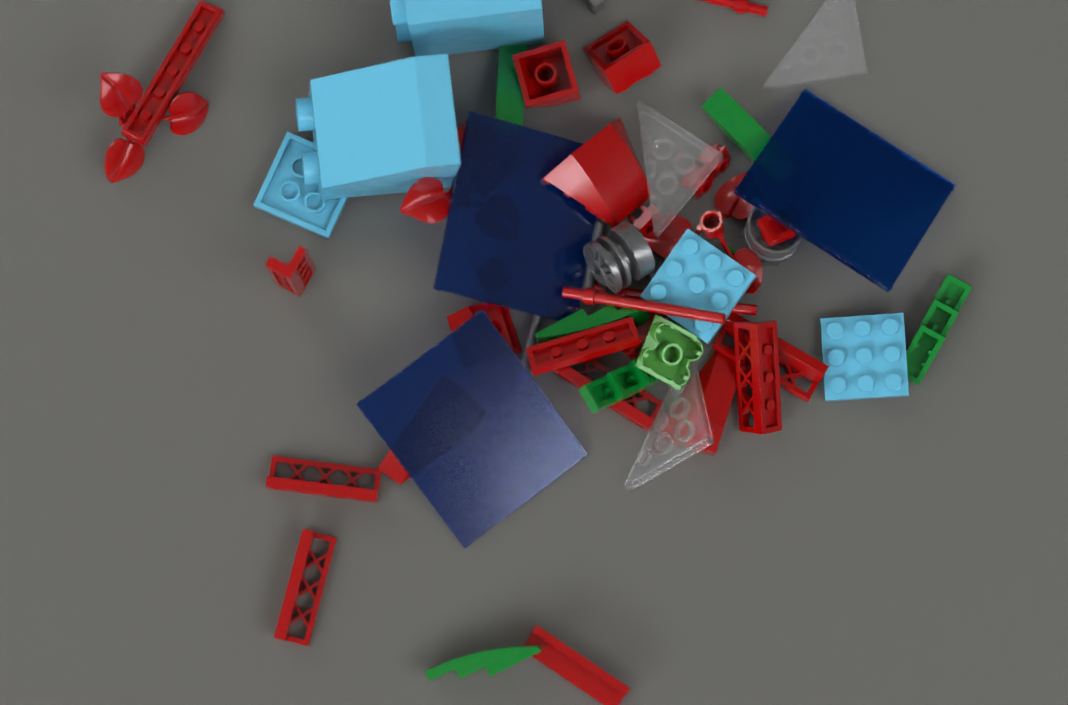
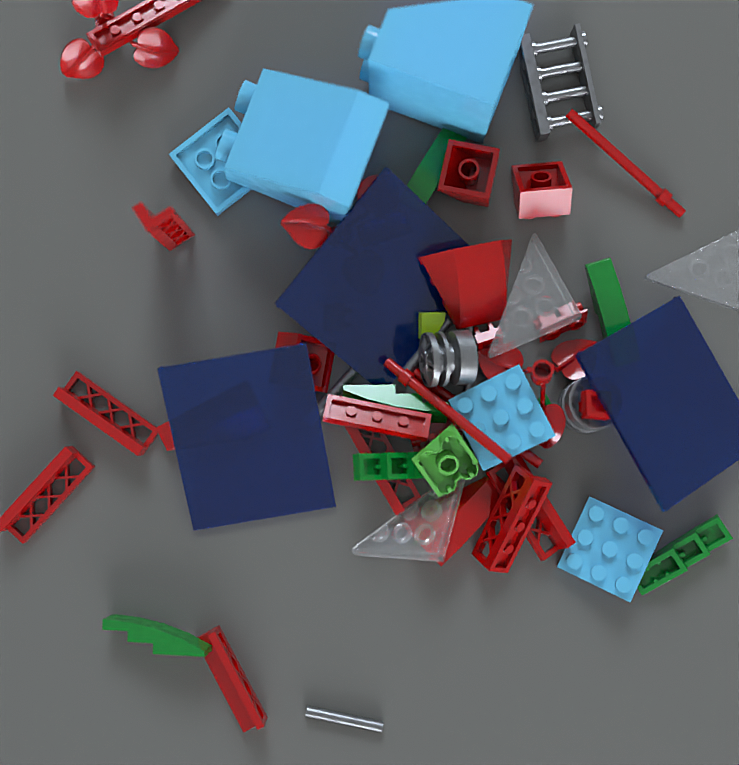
camera: 30 degrees right, 5 degrees up
(584, 233) = (430, 322): none -> lime tile
(702, 649) = (345, 719): none -> flat silver bar

